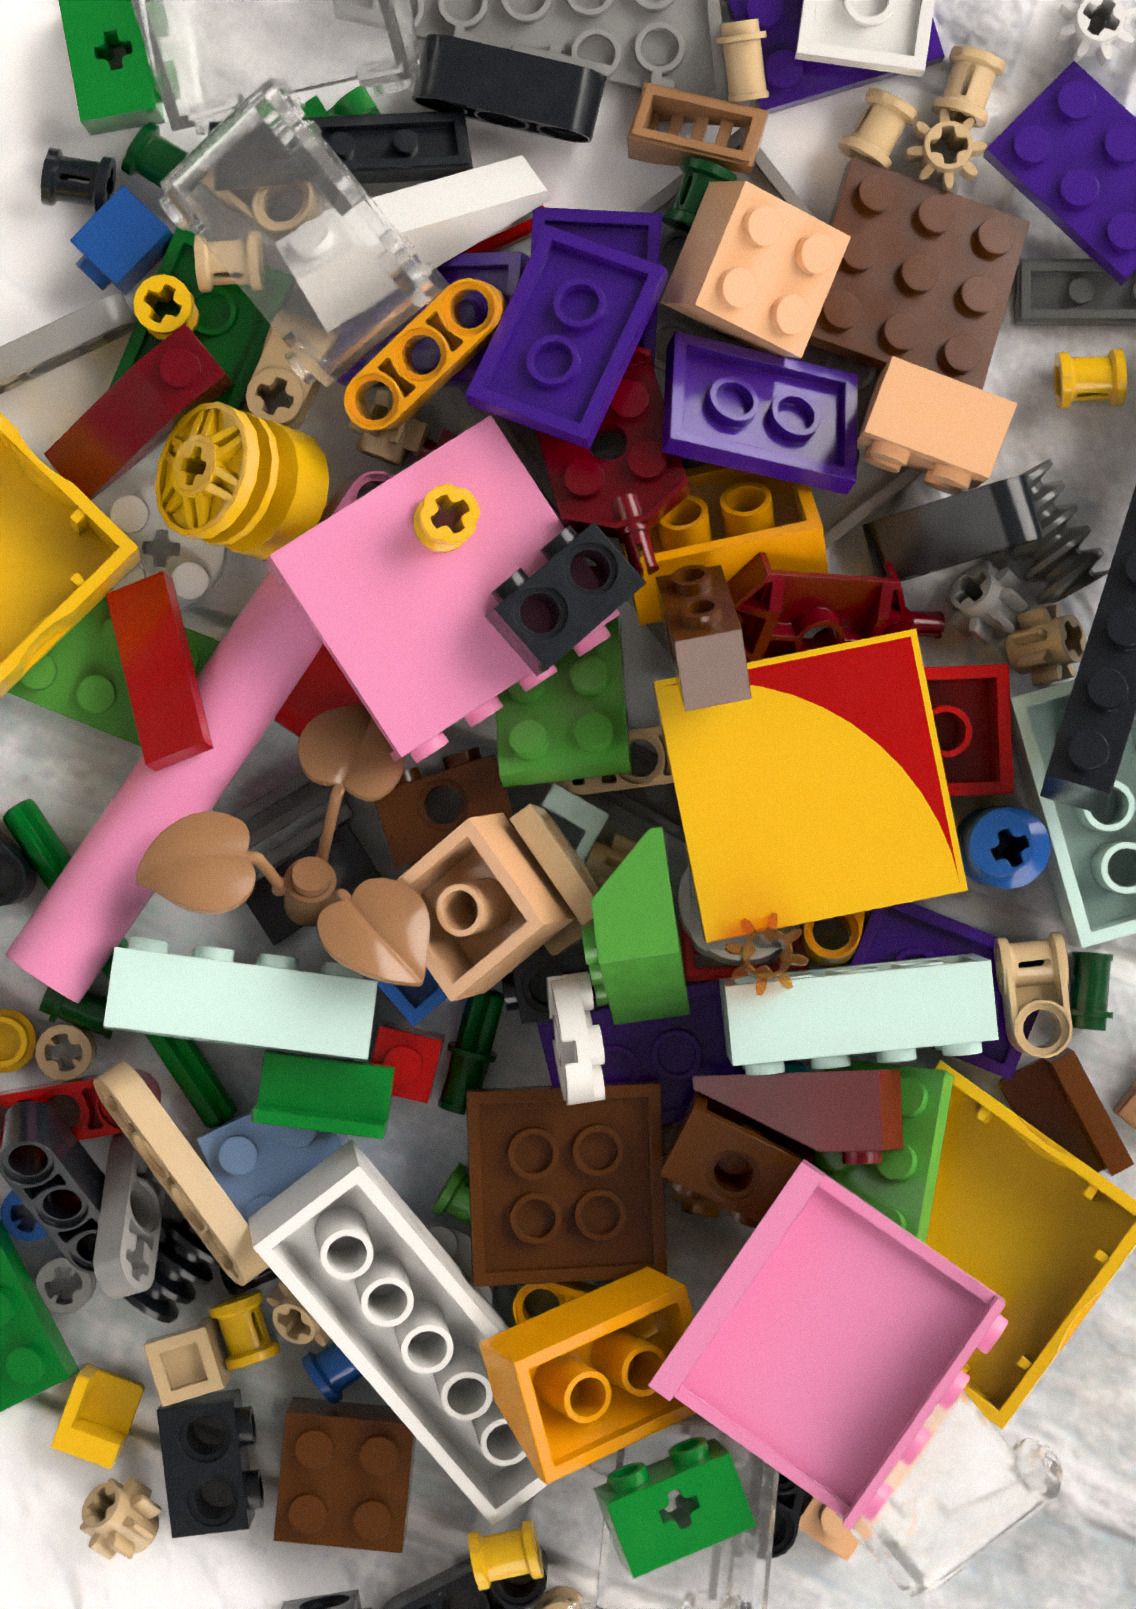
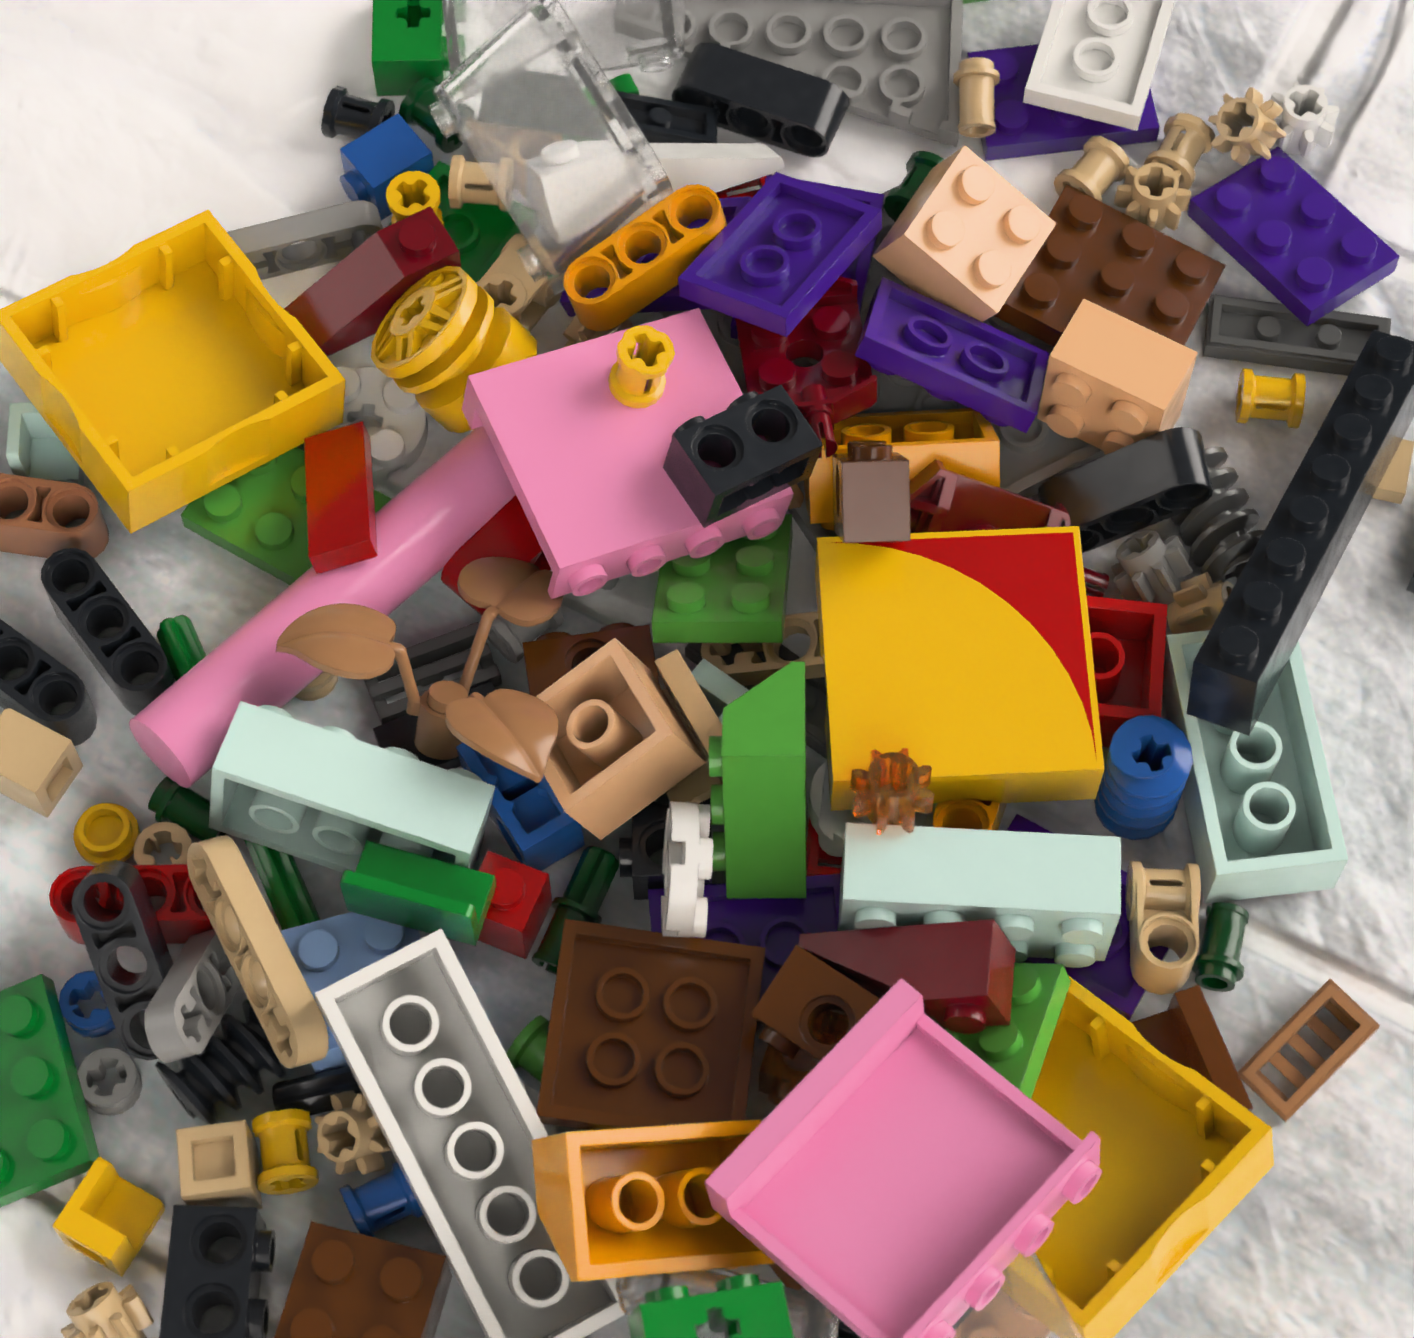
camera: 10 degrees right, 25 degrees down
(683, 107) = (900, 133): medium nougat slope -> none
(1053, 46) = (1247, 140): none -> tan gear

